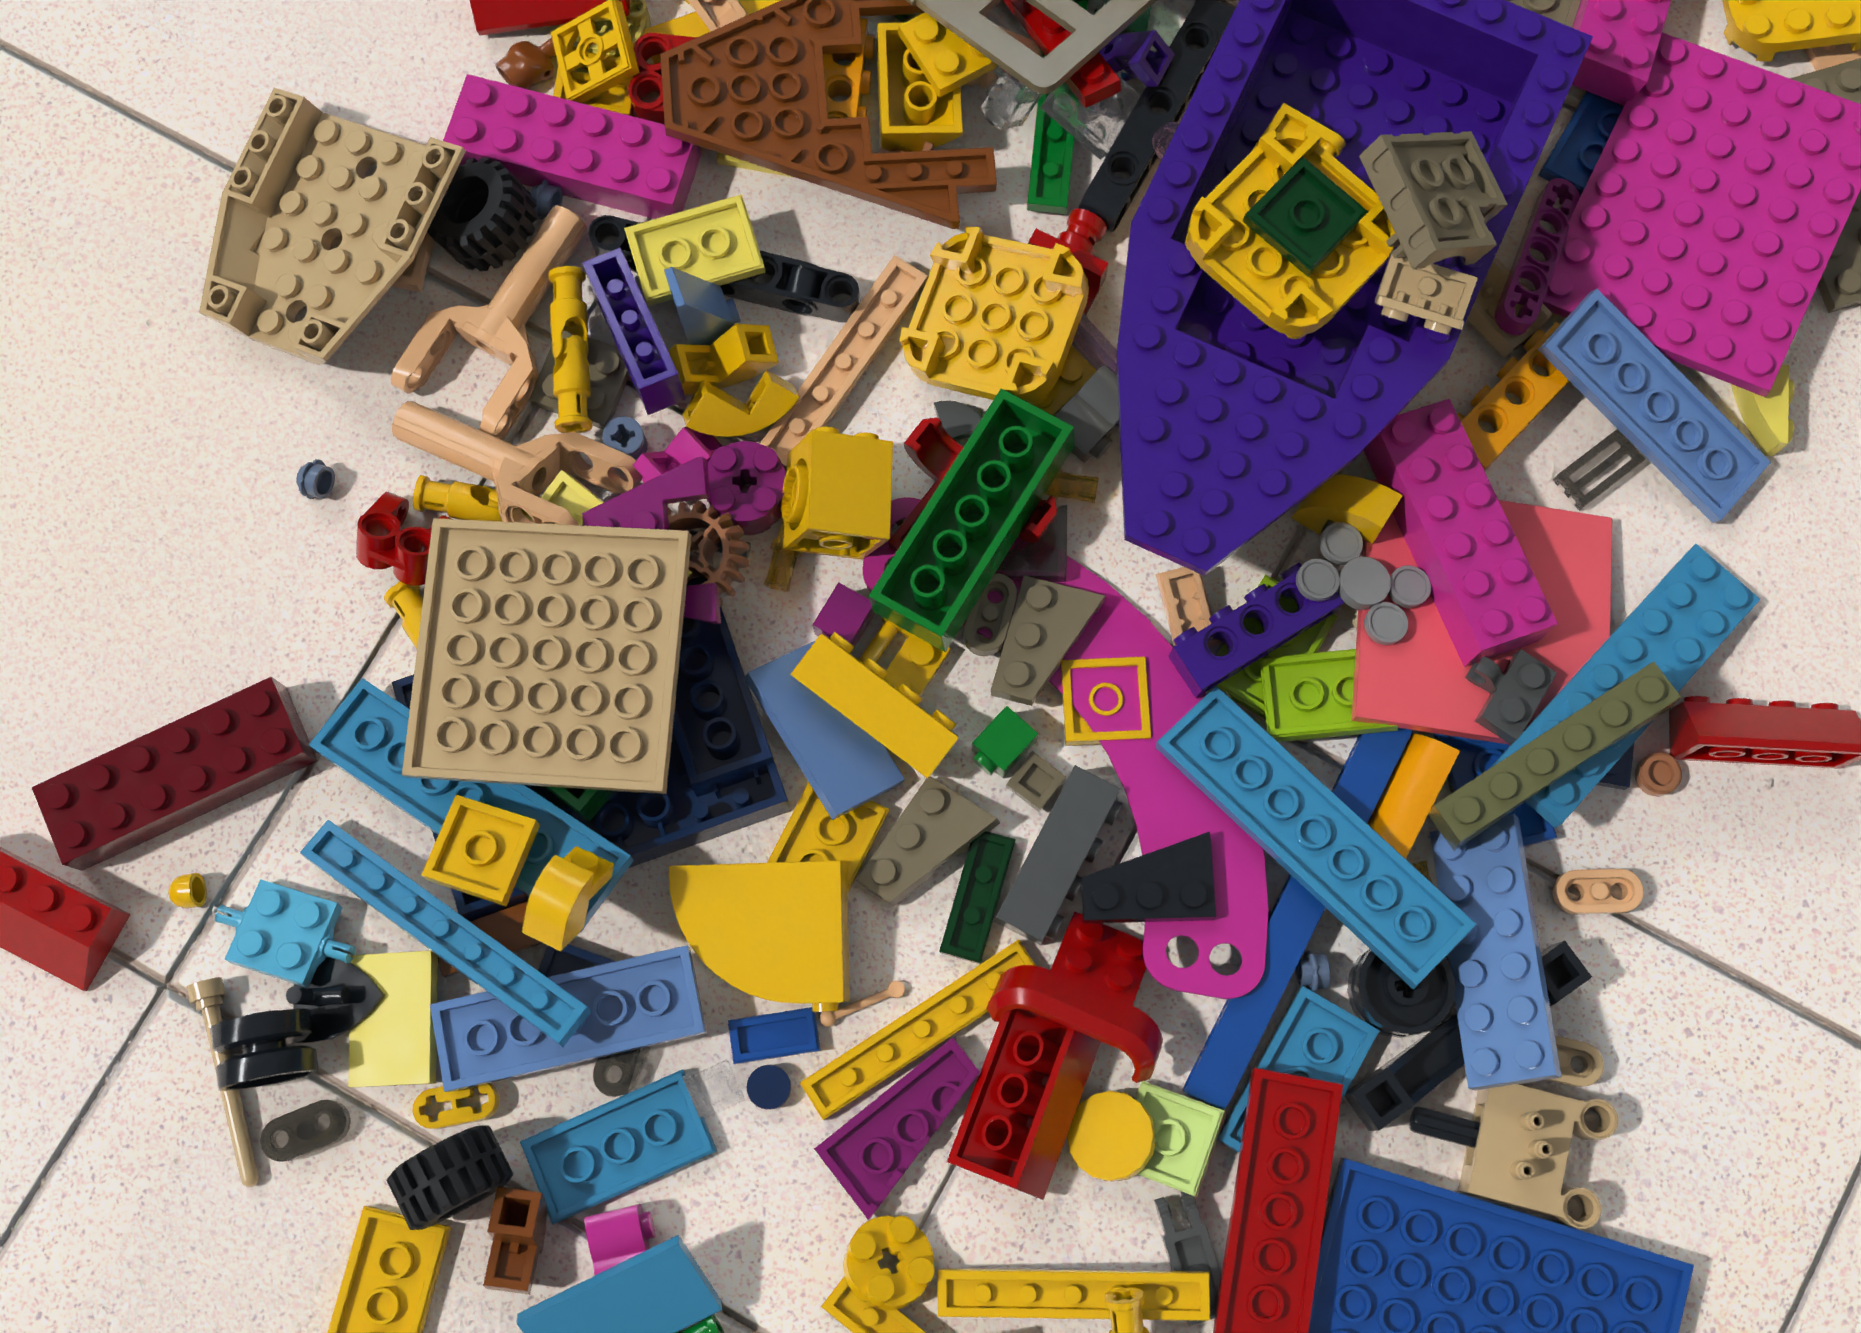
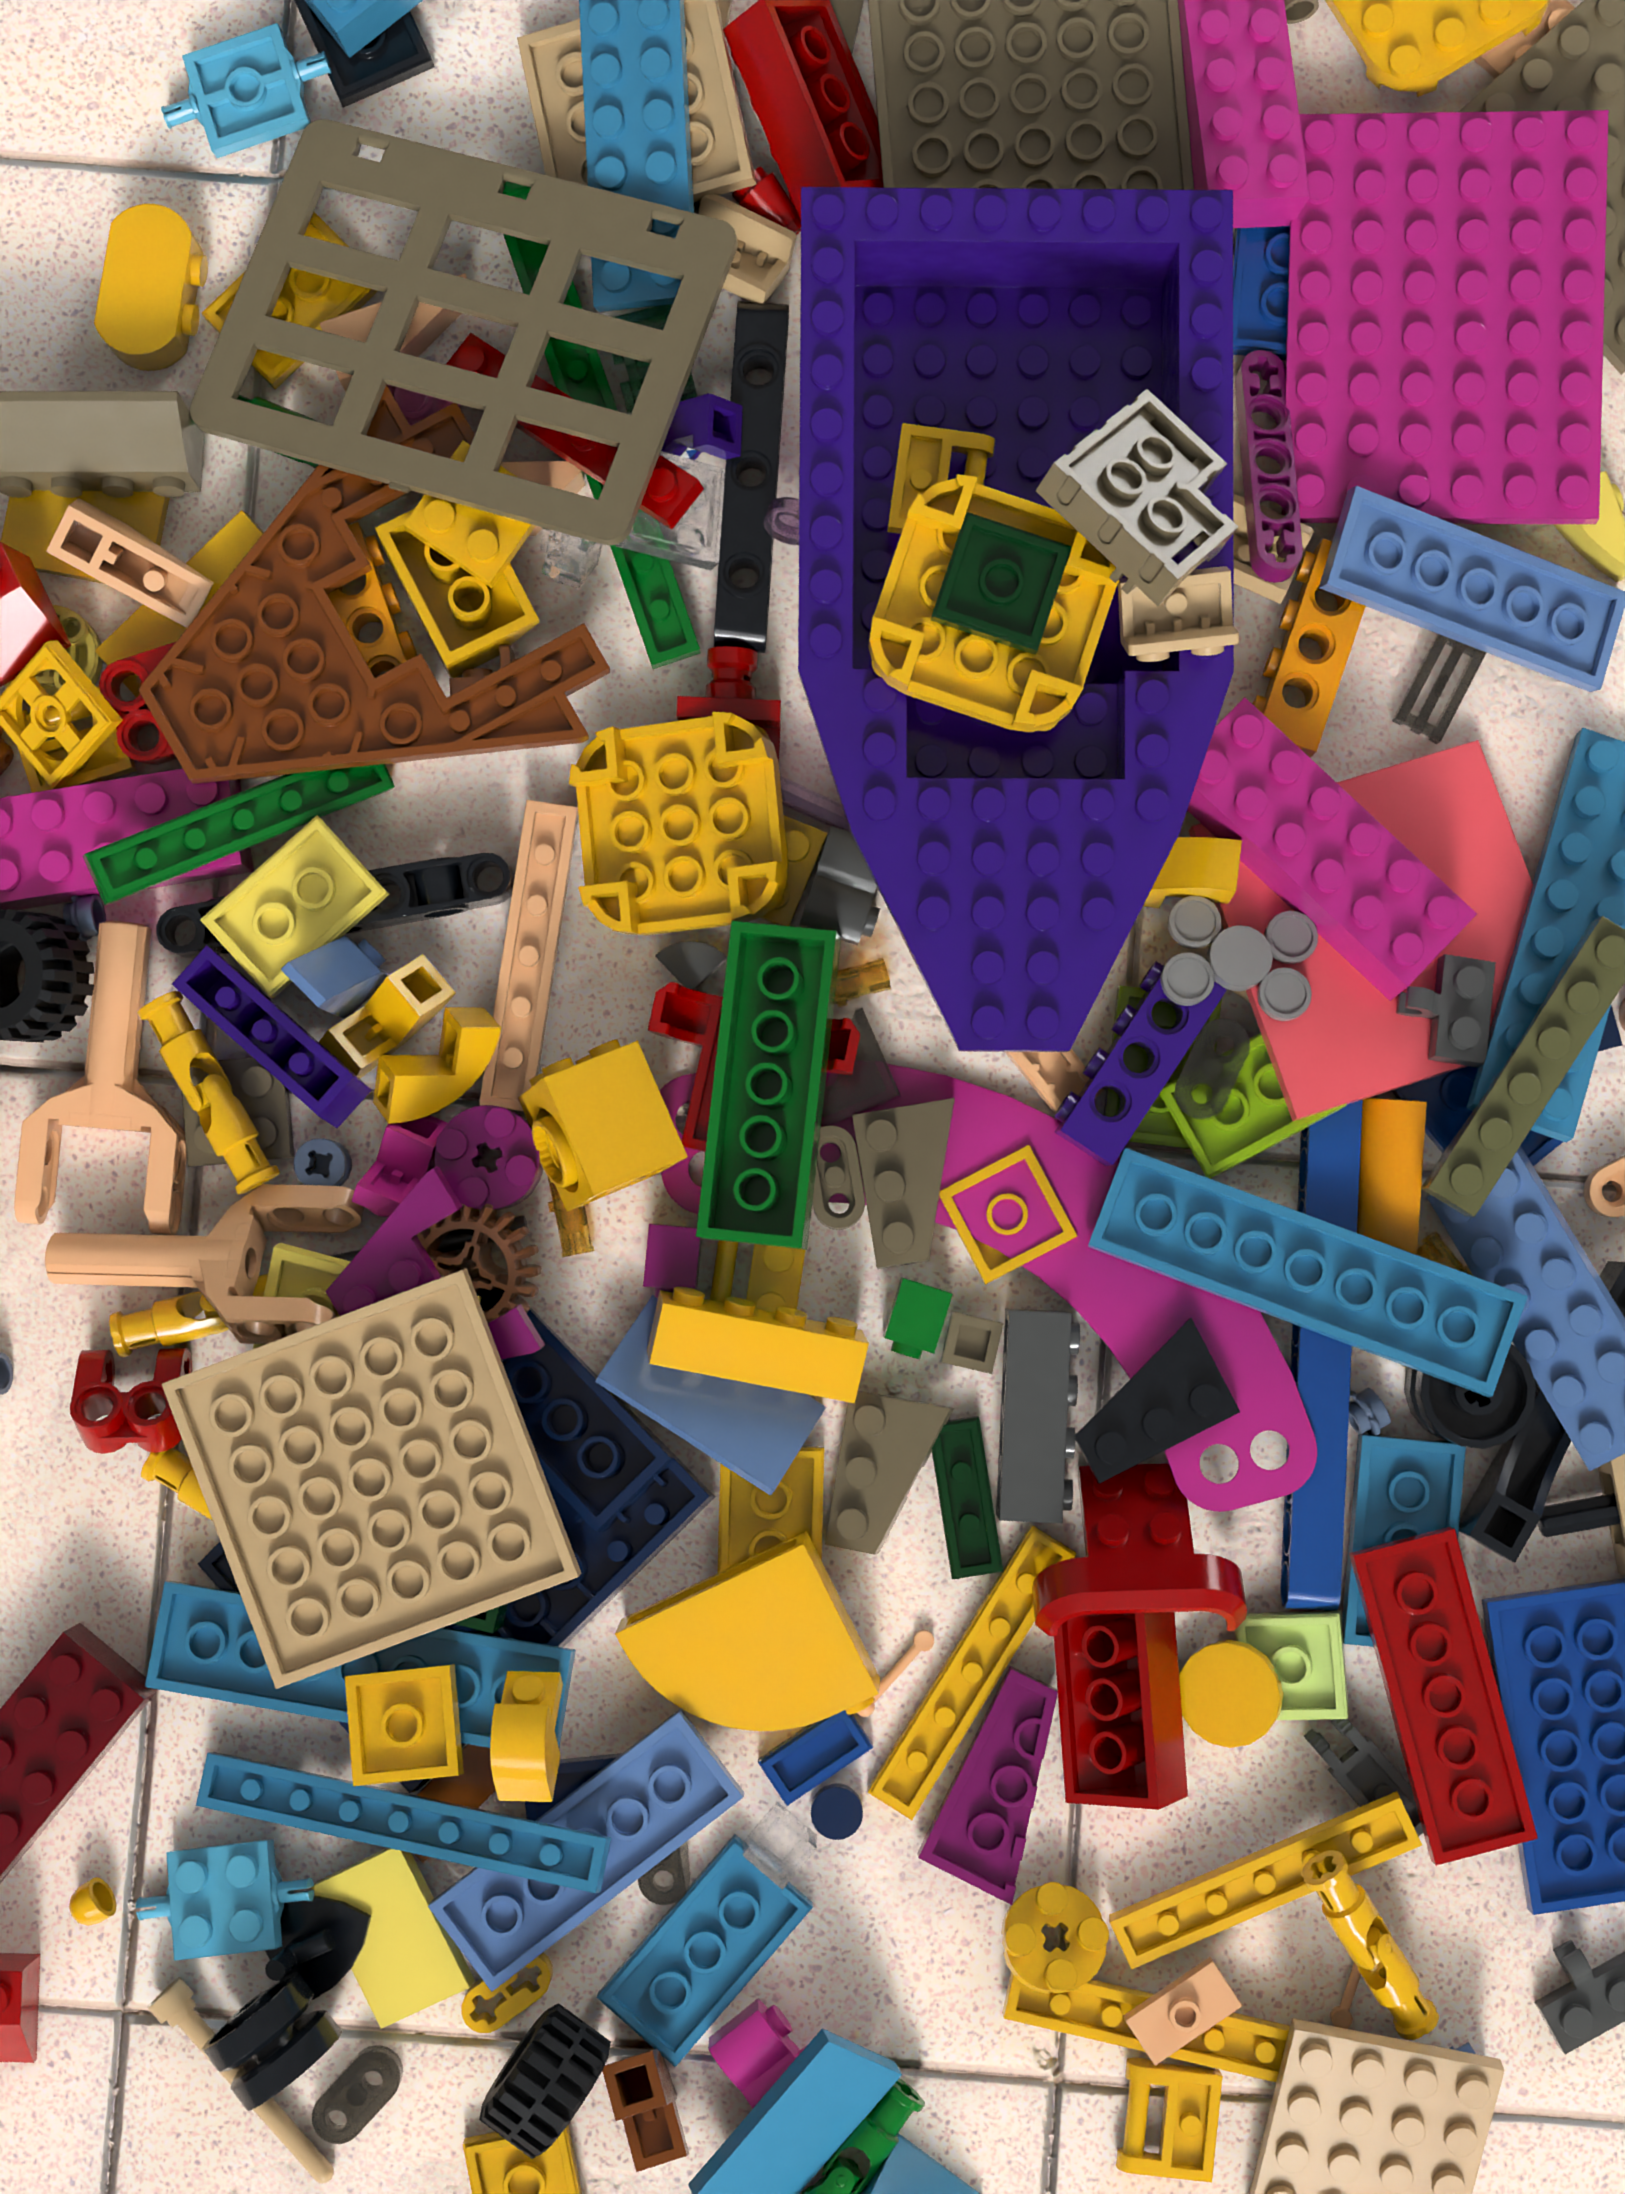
camera: 30 degrees left, 10 degrees up
(679, 174) = (228, 827): none -> green tile
(1306, 657) = (1210, 1069): none -> clear smoke plate

